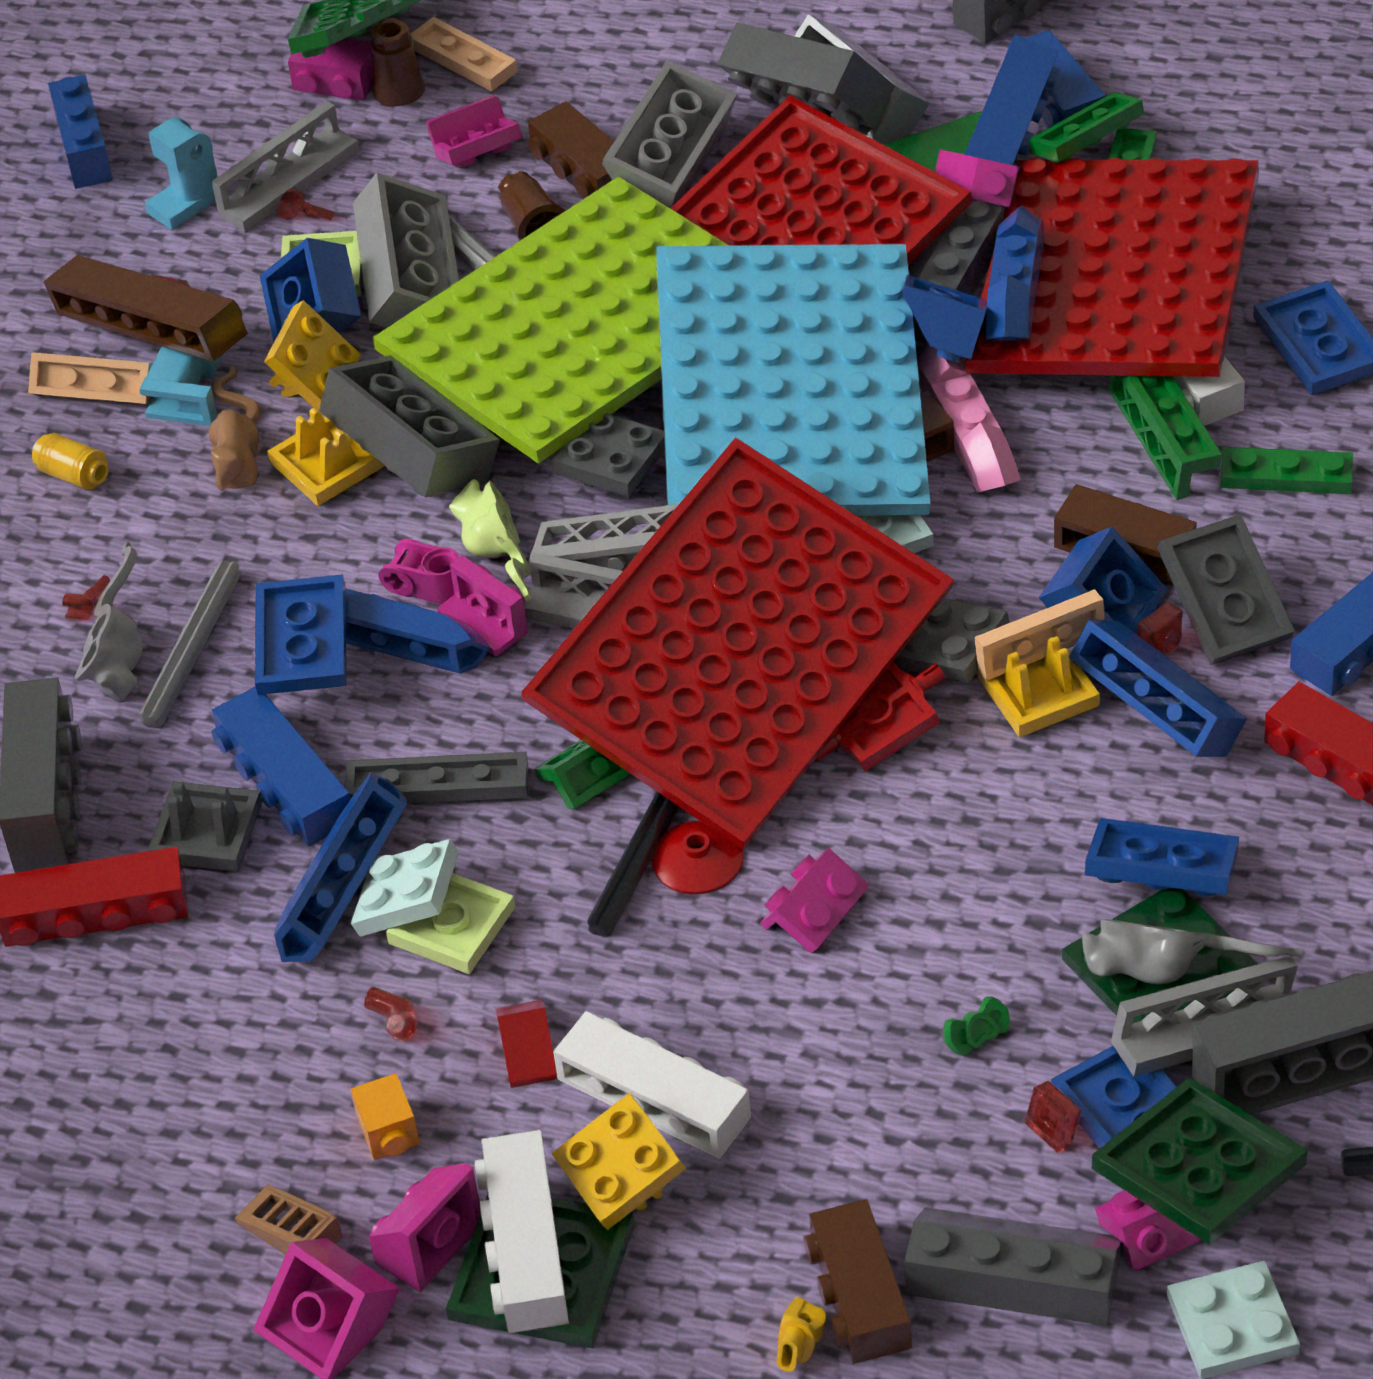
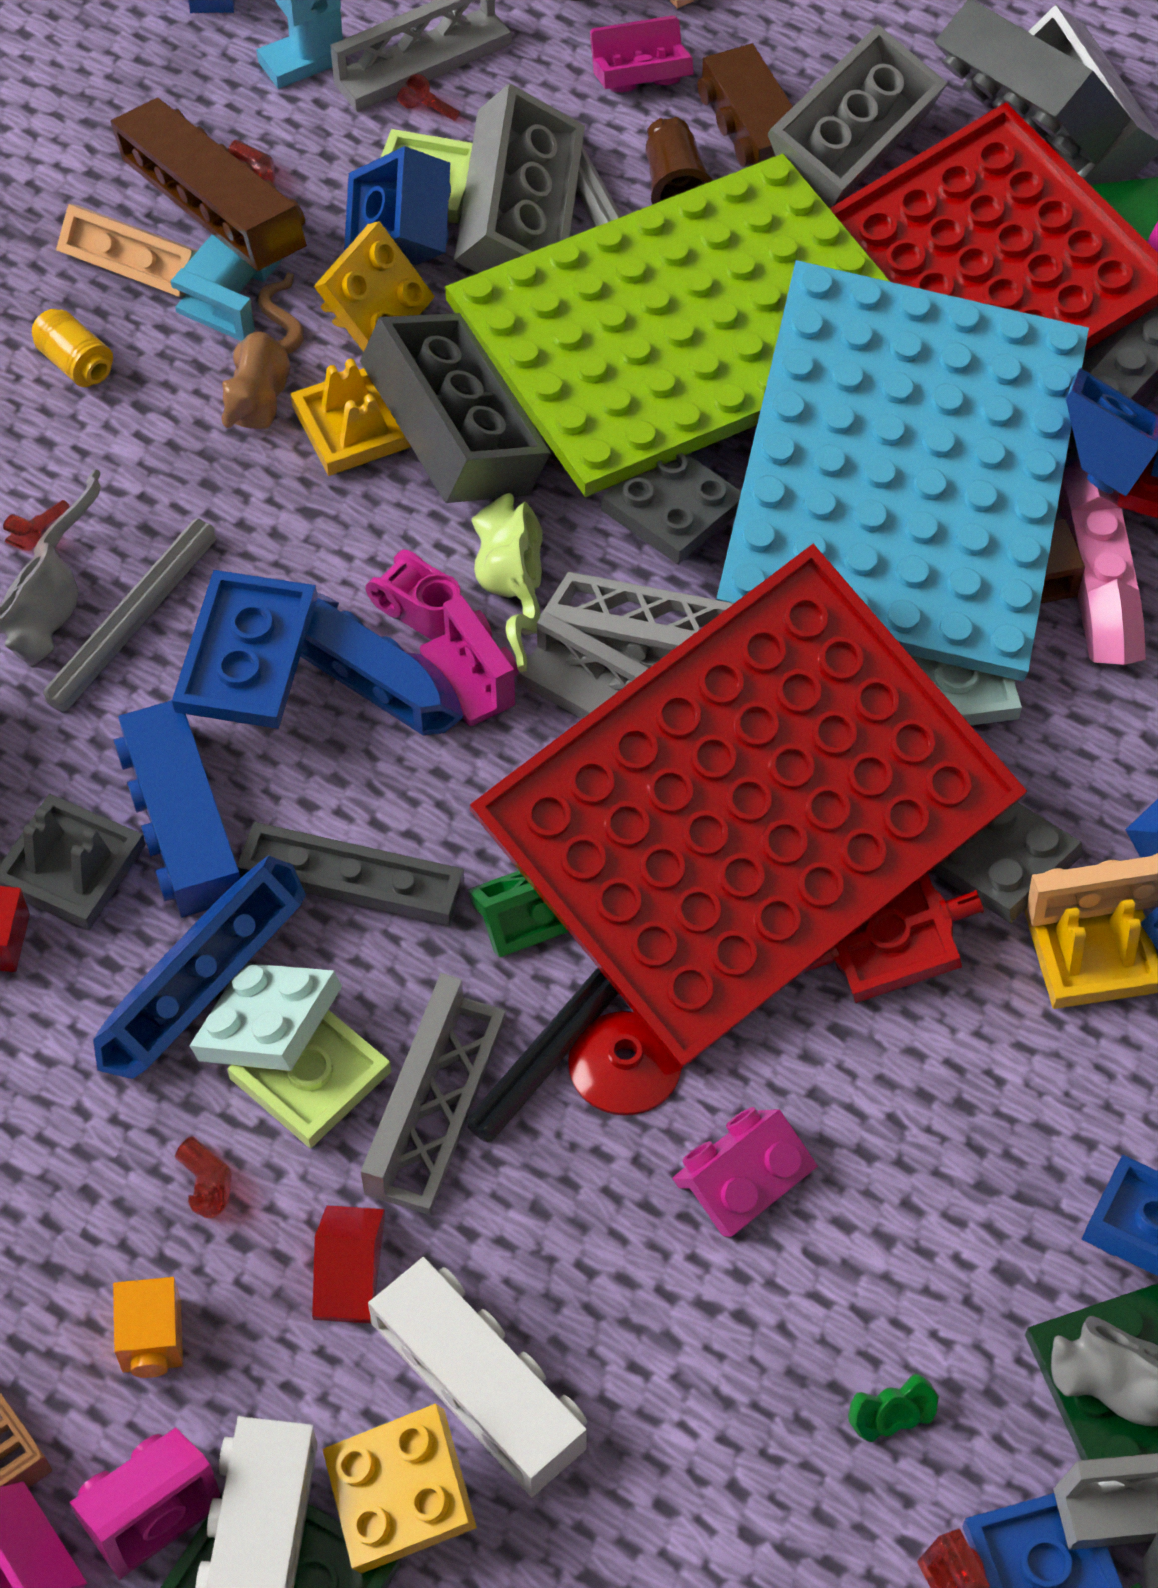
camera: 10 degrees right, 10 degrees up
(538, 910) = (413, 1087): none -> light grey fence

